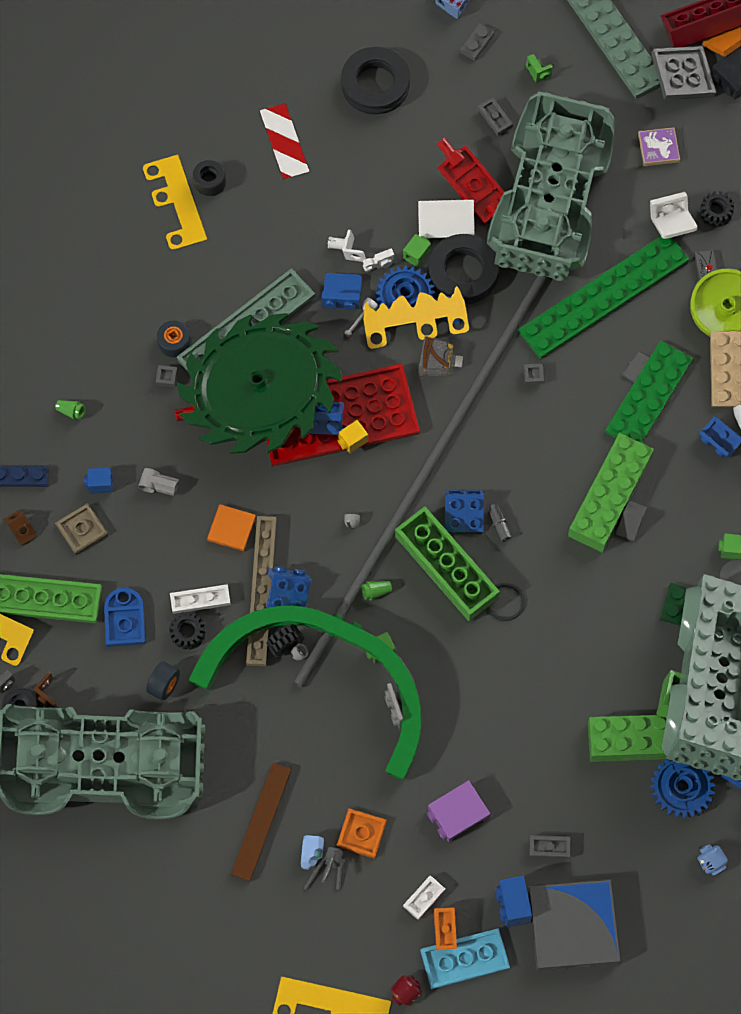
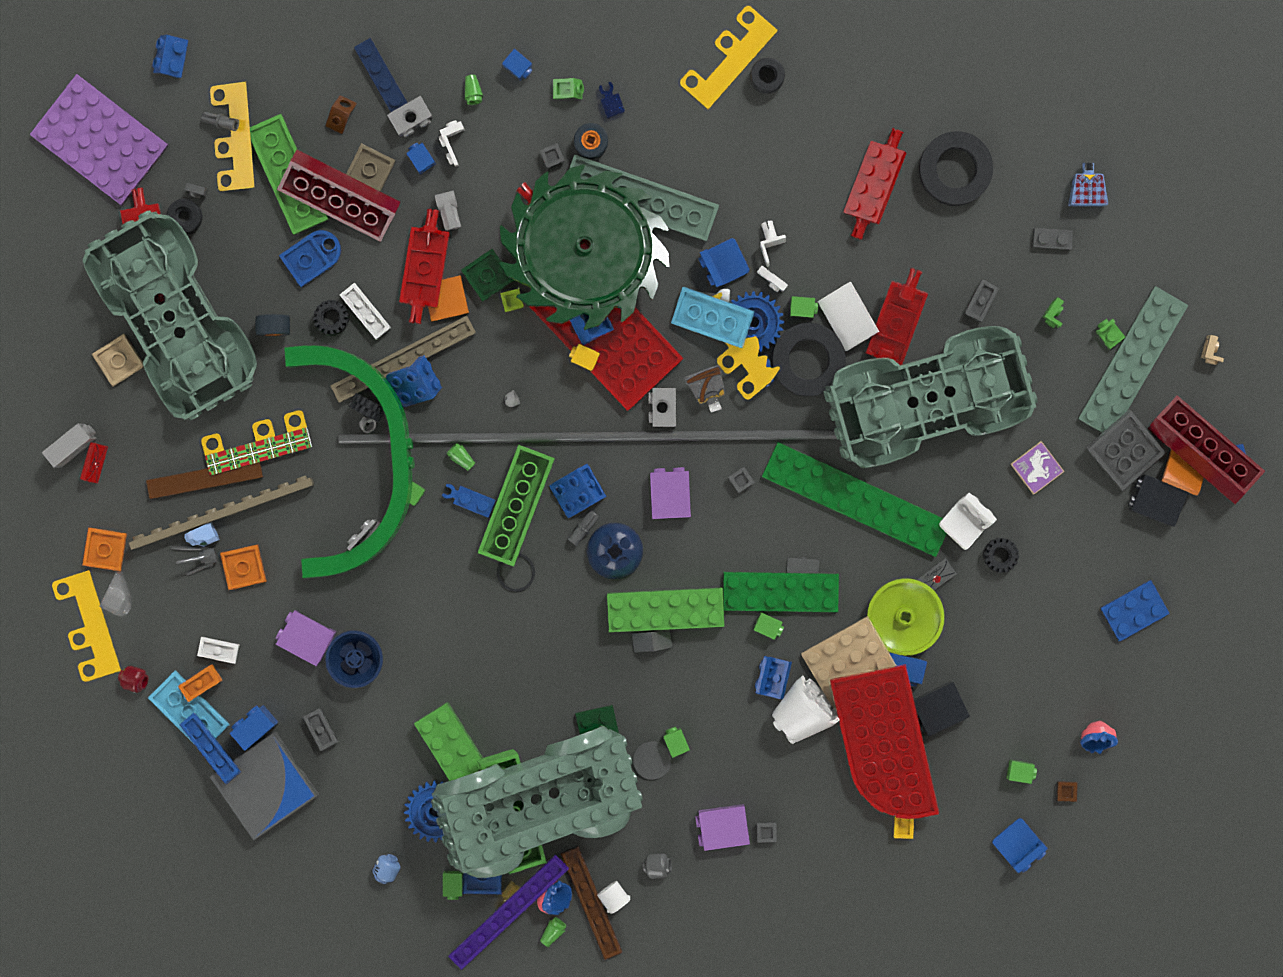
camera: 60 degrees right, 20 degrees up
(42, 697) = (201, 232): reddish brown bracket -> none
(59, 480) = (417, 107): none -> light grey brick
(73, 361) = (518, 65): none -> blue brick
(87, 562) = (338, 195): none -> dark red slope
(98, 453) = (452, 128): none -> white bracket
(108, 837) = (118, 360): none -> tan tile
(118, 334) = (567, 88): none -> bright green bracket
(153, 308) = (611, 103): none -> clear blue plate
(157, 920) = (69, 445): none -> light grey brick
(186, 911) = (94, 462): none -> red tile
(193, 527) = (424, 267): none -> red plate
(233, 481) = (486, 275): none -> dark green plate
(265, 756) = (264, 448): none -> piece
(267, 473) = (510, 301): none -> lime plate
(270, 949) = (104, 549): none -> orange tile
(284, 141) = (847, 119): sticker -> none
(298, 831) = (212, 514): none -> dark tan plate
(321, 960) = (117, 596): none -> clear slope
(349, 144) = (875, 183): none -> red plate
(382, 320) = (712, 317): none -> medium azure tile
(419, 603) = (471, 500): none -> blue plate
(428, 393) = (668, 396): none -> light grey brick
(508, 765) = (345, 668): none -> dark blue piece
(511, 952) = (210, 748): none -> blue tile
(512, 435) = (670, 493): none -> medium lavender brick
(529, 517) = (602, 543): none -> dark blue piece
(579, 39) = (1109, 333): none -> bright green bracket
(673, 418) = (768, 626): none -> bright green brick

